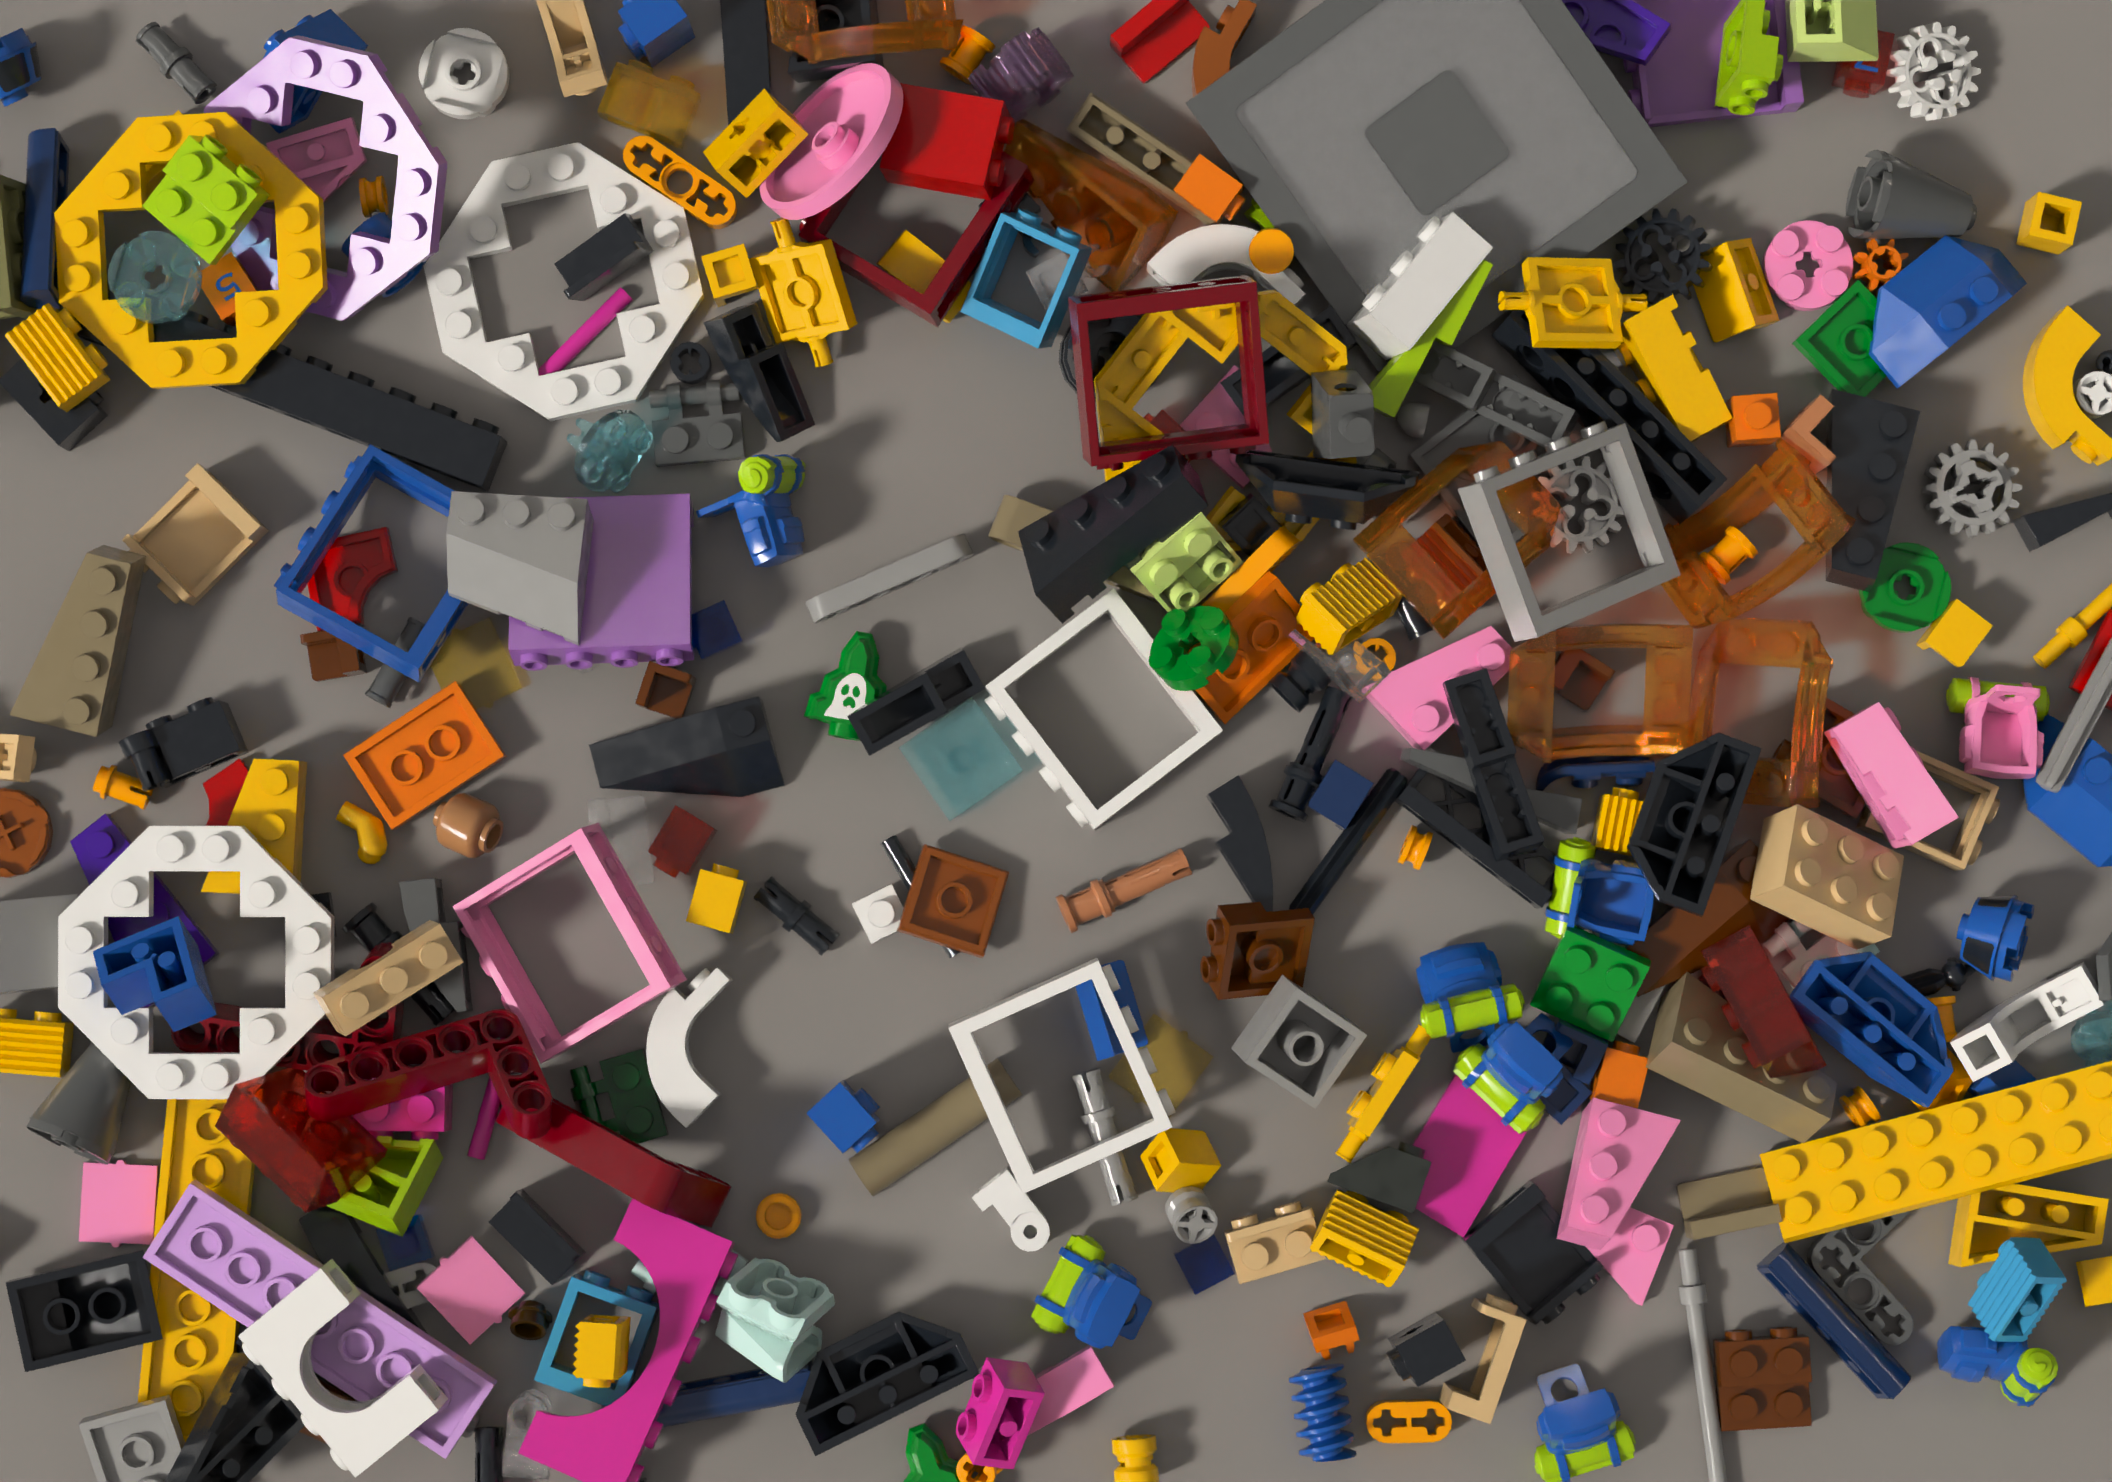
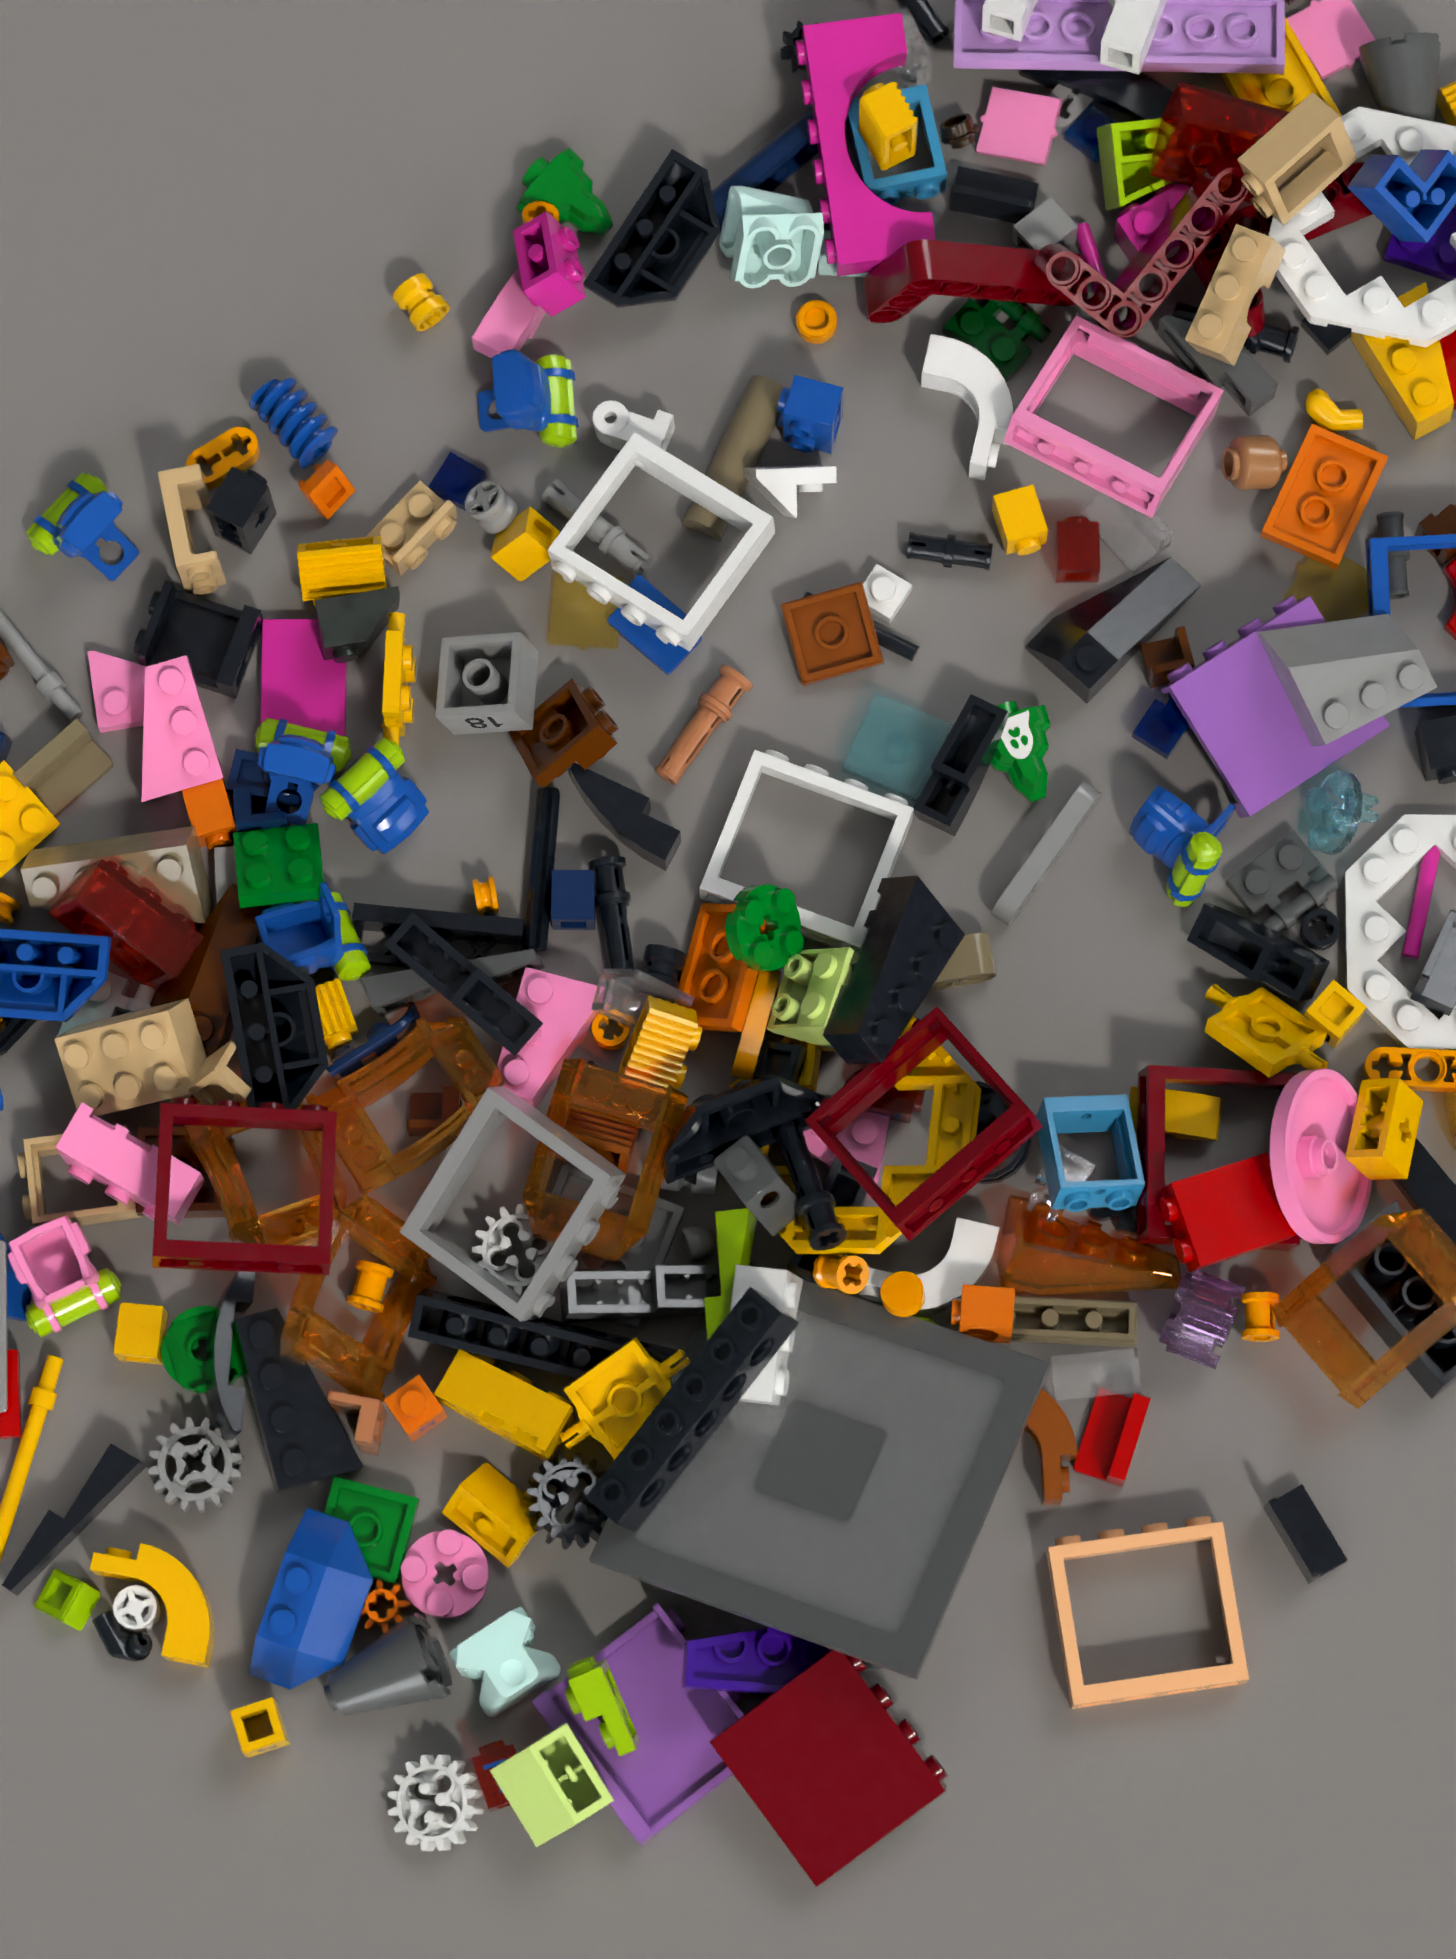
camera: 155 degrees right, 10 degrees down
(248, 1065) = (1296, 159): none -> tan window
(513, 1168) = (1045, 226): none -> light grey panel
(906, 1073) = (781, 482): none -> white slope
(1143, 89) = (1095, 1374): none -> clear panel
(1301, 298) = (839, 1271): none -> light orange bush
(1303, 365) = (814, 1202): none -> black pin
(1527, 241) = (692, 1410): none -> black brick
(1769, 801) = (218, 1081): none -> tan panel
(1804, 150) = (505, 1662): none -> light aqua piece
(1850, 619) = (244, 1256): none -> dark red window
(1855, 612) = (226, 1400): none -> black slope

